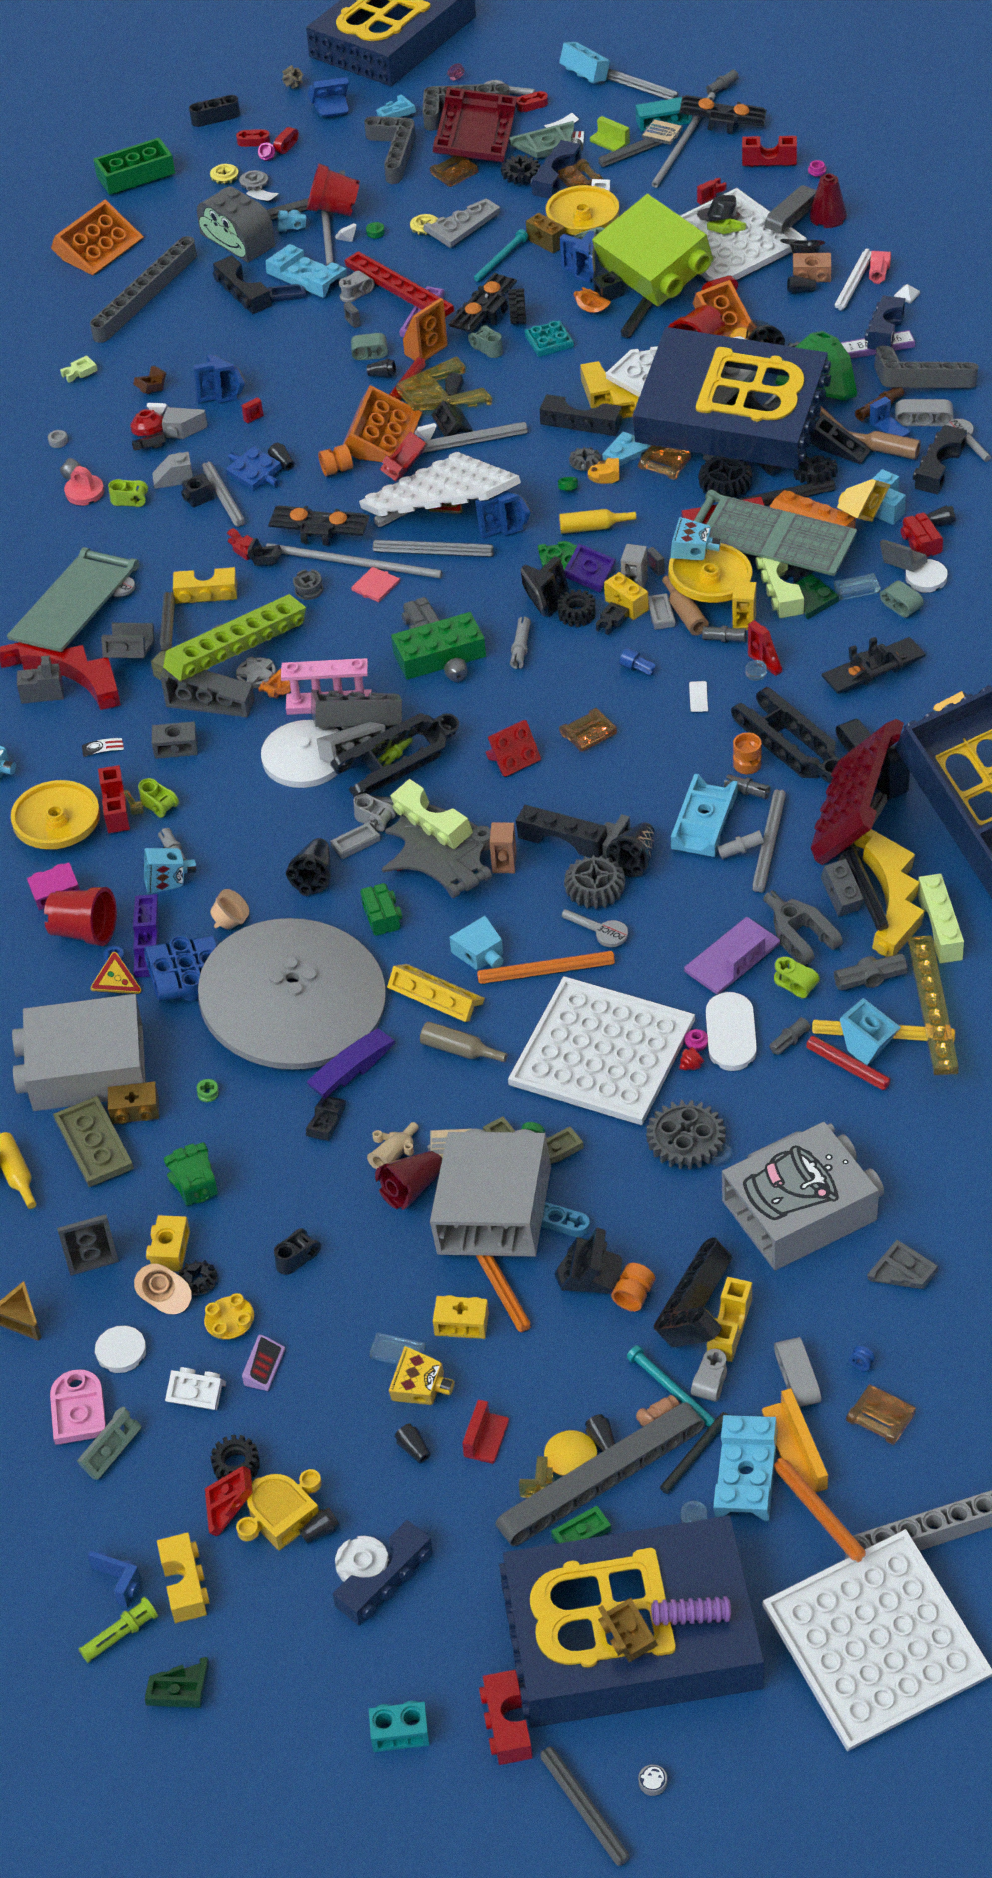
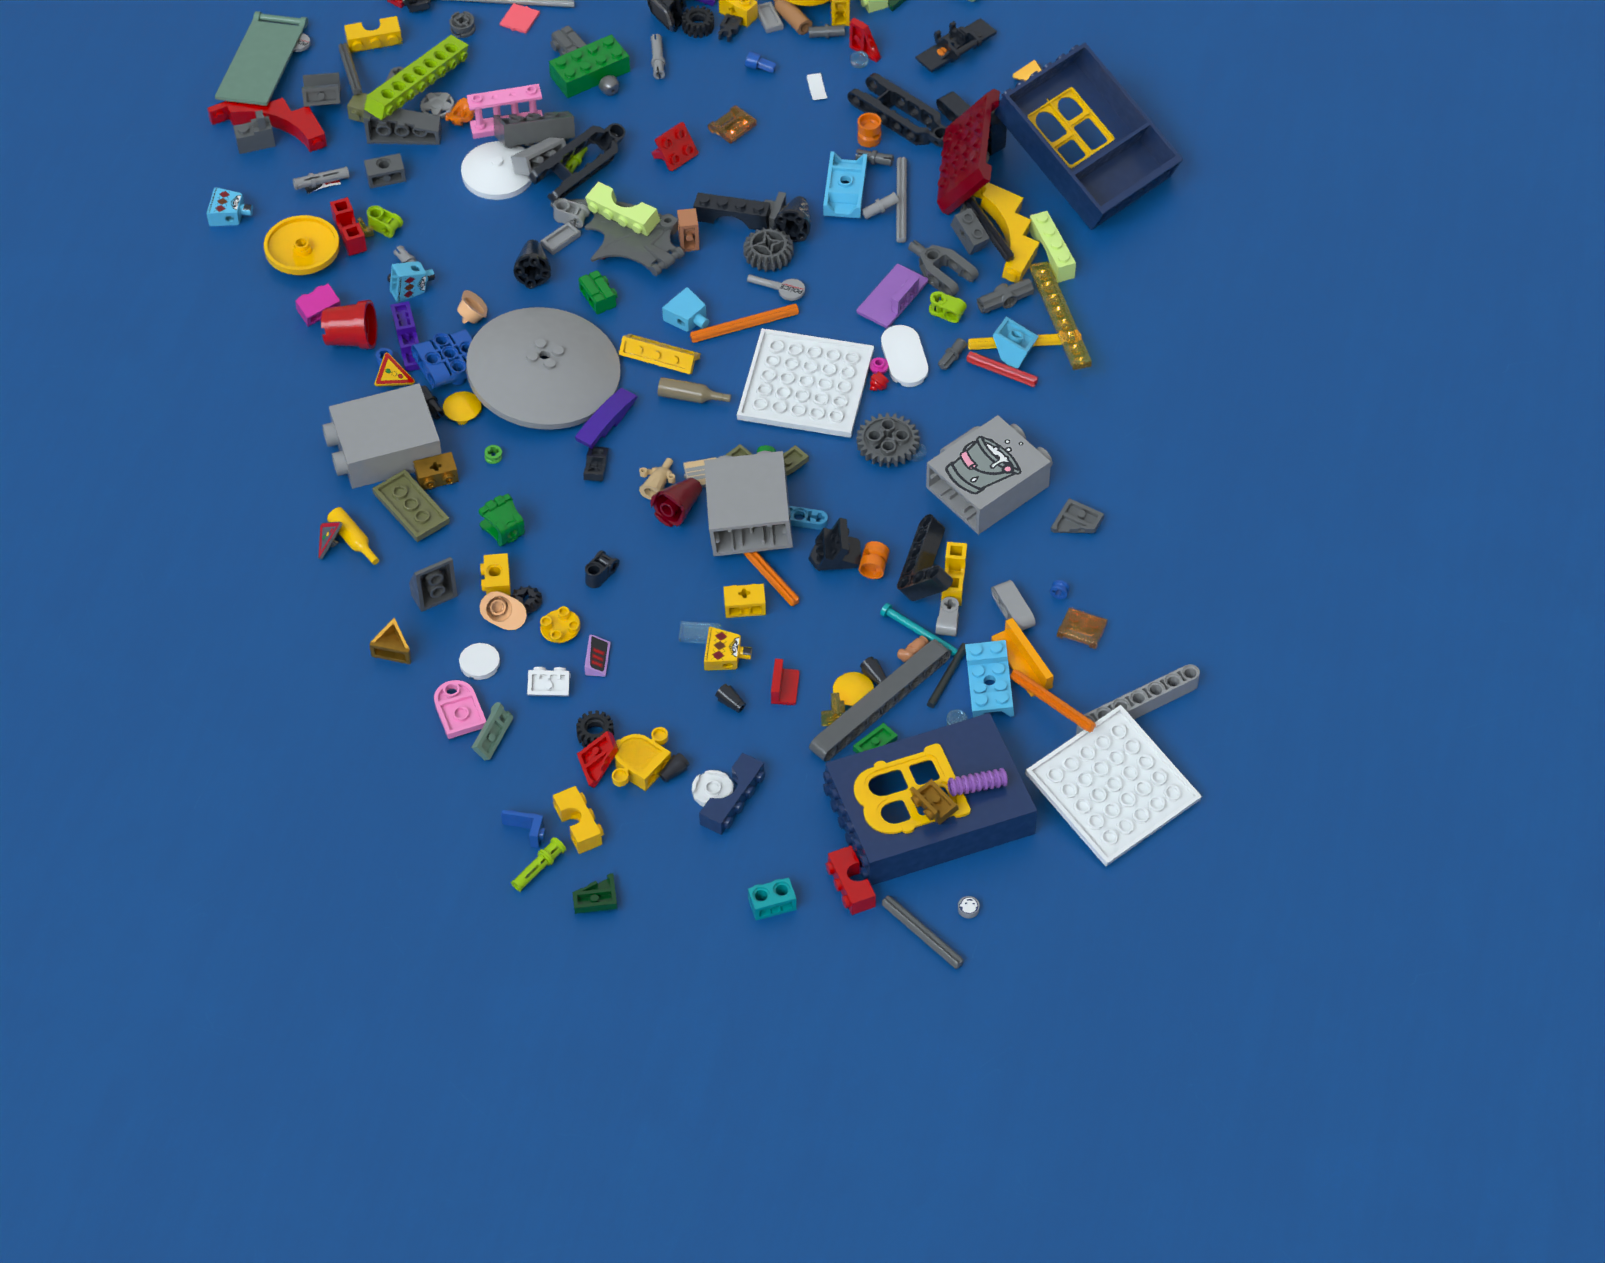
camera: 15 degrees left, 5 degrees up
(100, 740) = (320, 178): none -> light grey pin
(151, 1017) = (432, 403): none -> black axle
(186, 1028) = (462, 407): none -> yellow dish

